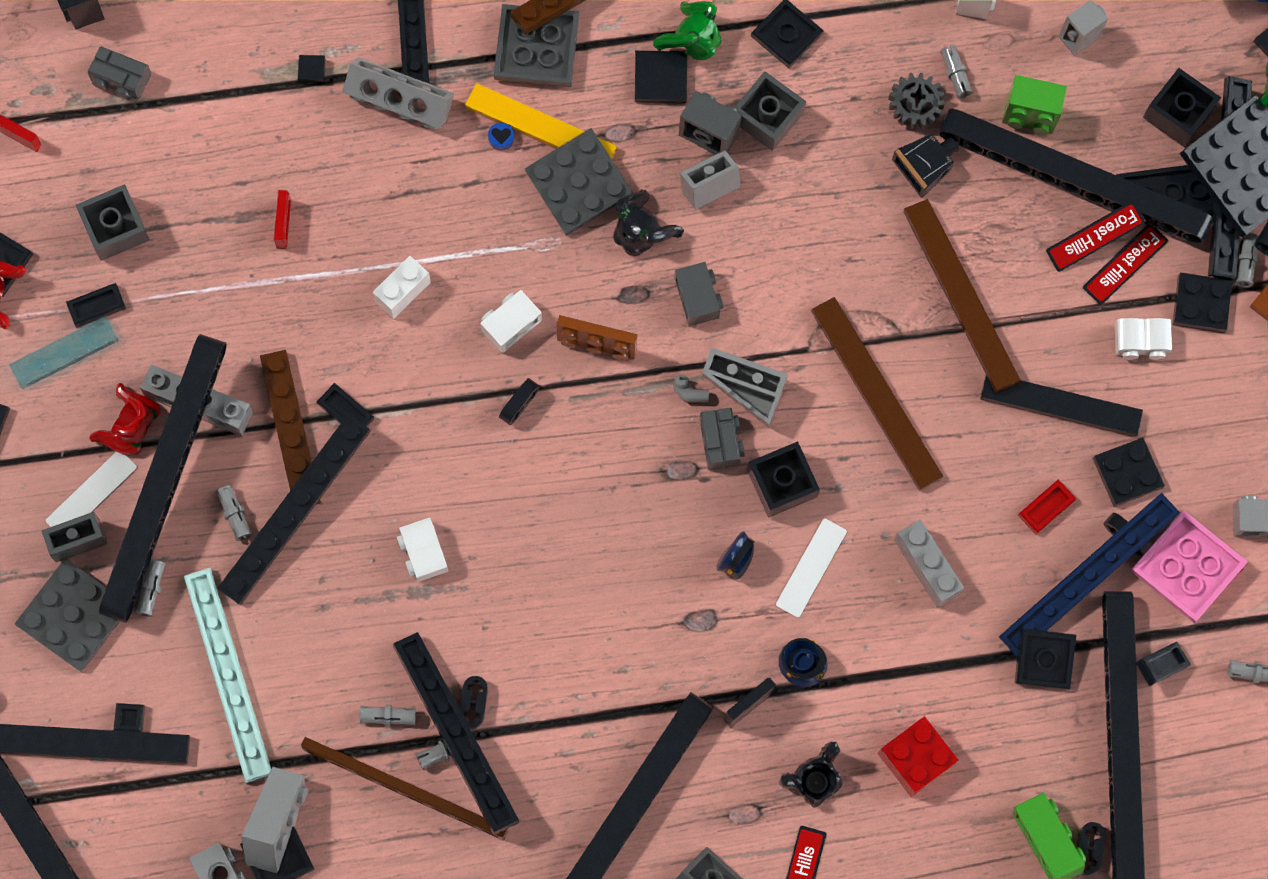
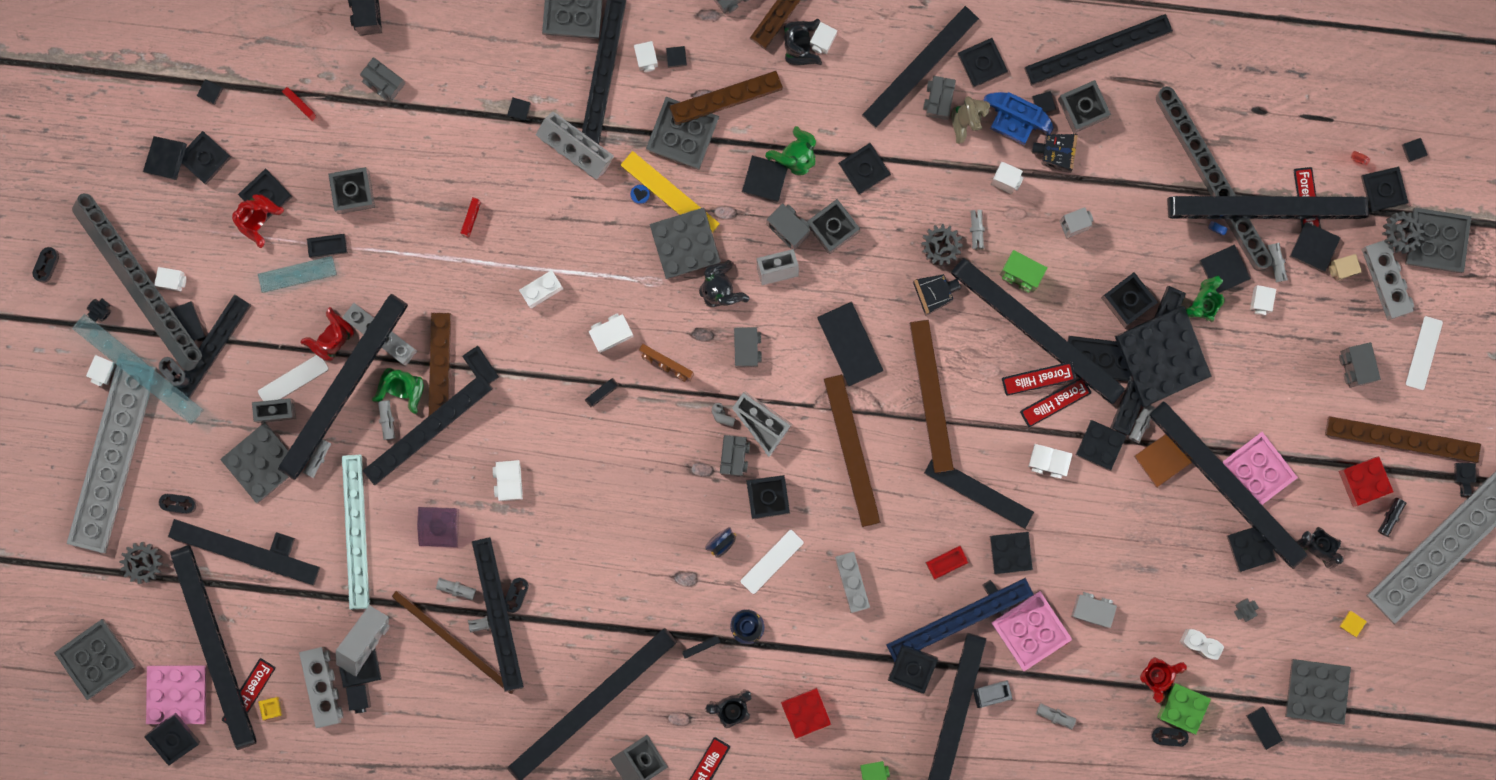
camera: 20 degrees right, 10 degrees up
(242, 460) = (401, 385): none -> green hair
(341, 636) = (438, 526): none -> clear purple slope
(833, 257) = (850, 344): none -> black tile

